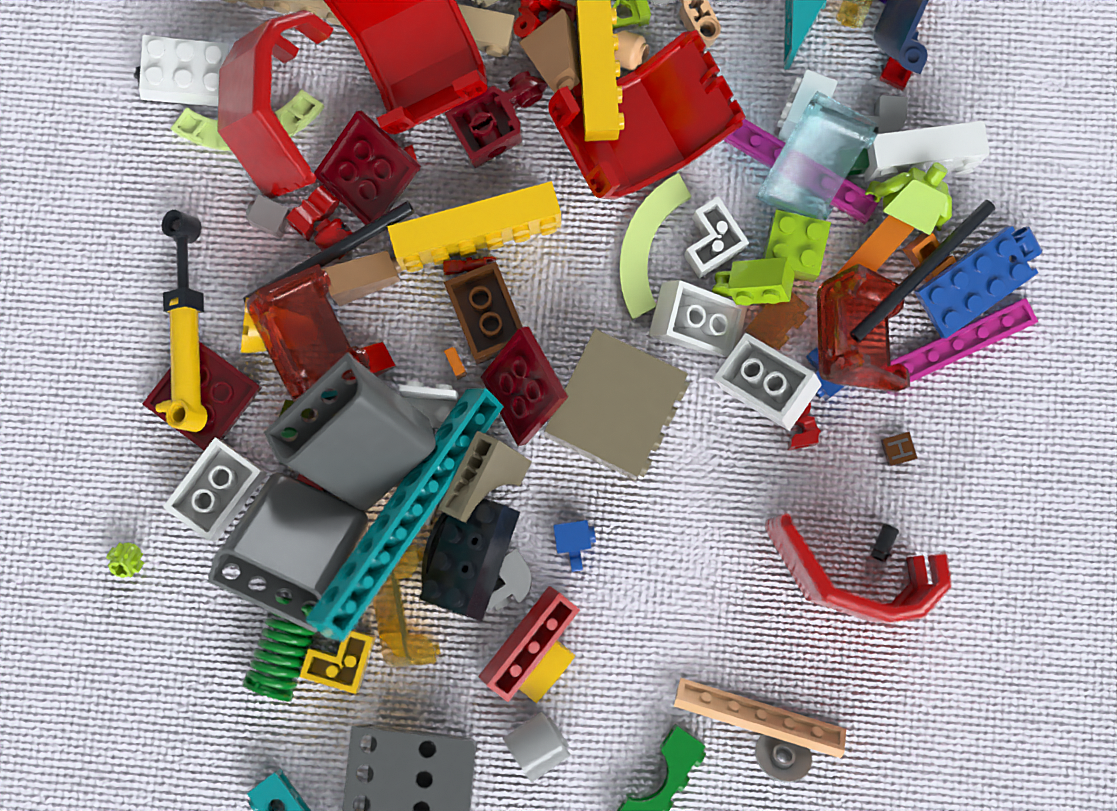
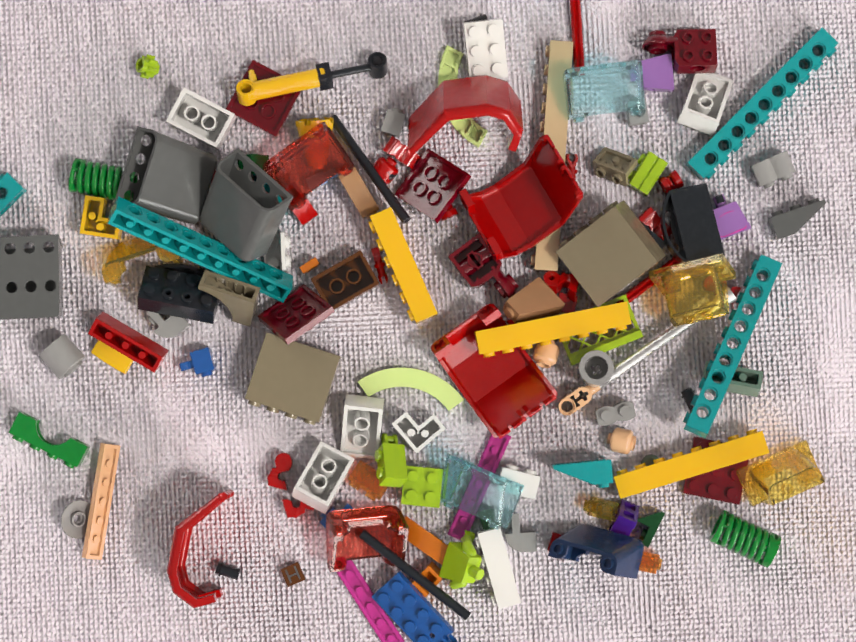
camera: 85 degrees right, 5 degrees up
(739, 439) = (283, 463): none -> red leg

